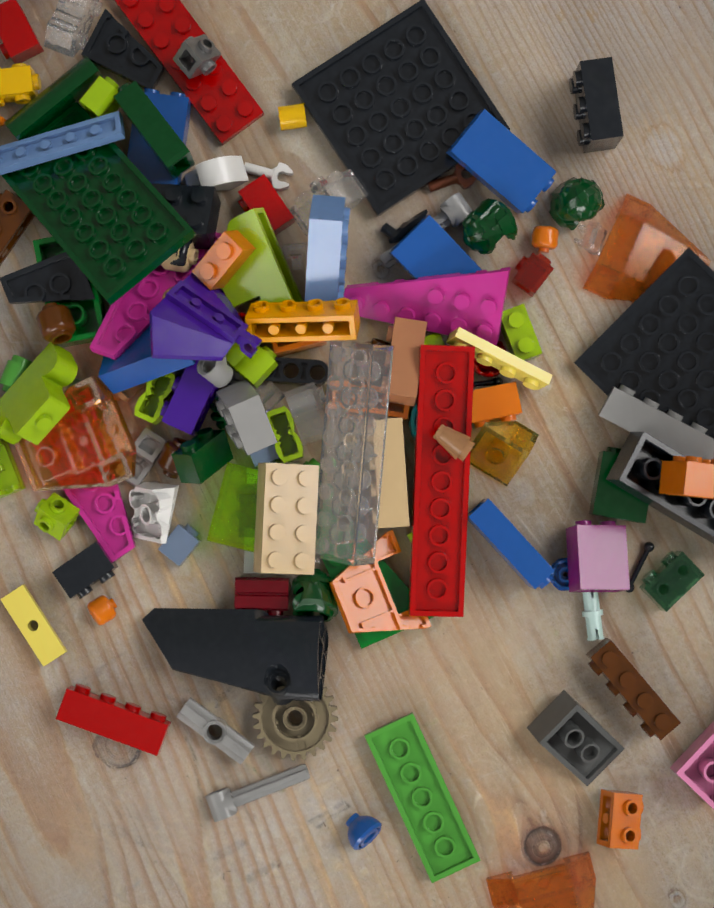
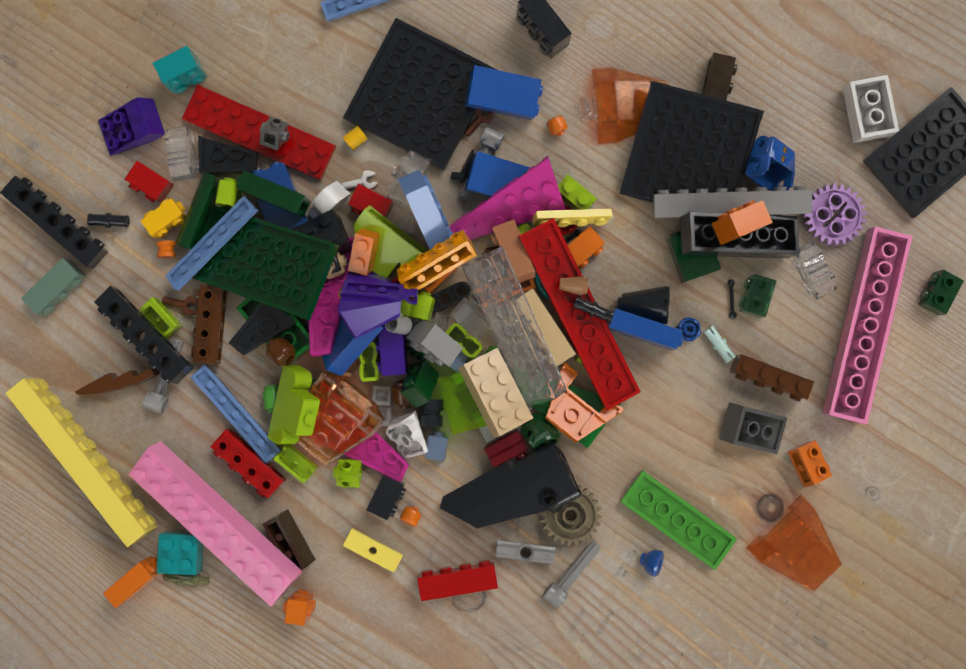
camera: 25 degrees left, 0 degrees up
(195, 500) = (431, 413): none -> black wheel
(460, 484) = (593, 309): none -> black pin
(488, 225) = (517, 137): dark green helmet -> none
(502, 449) = (605, 272): clear yellow slope -> none
(532, 273) = (561, 152): clear red brick -> none
(532, 515) = (647, 303): none -> black cone
(575, 202) = (563, 91): dark green helmet -> none
(597, 557) = (703, 307): brick -> none

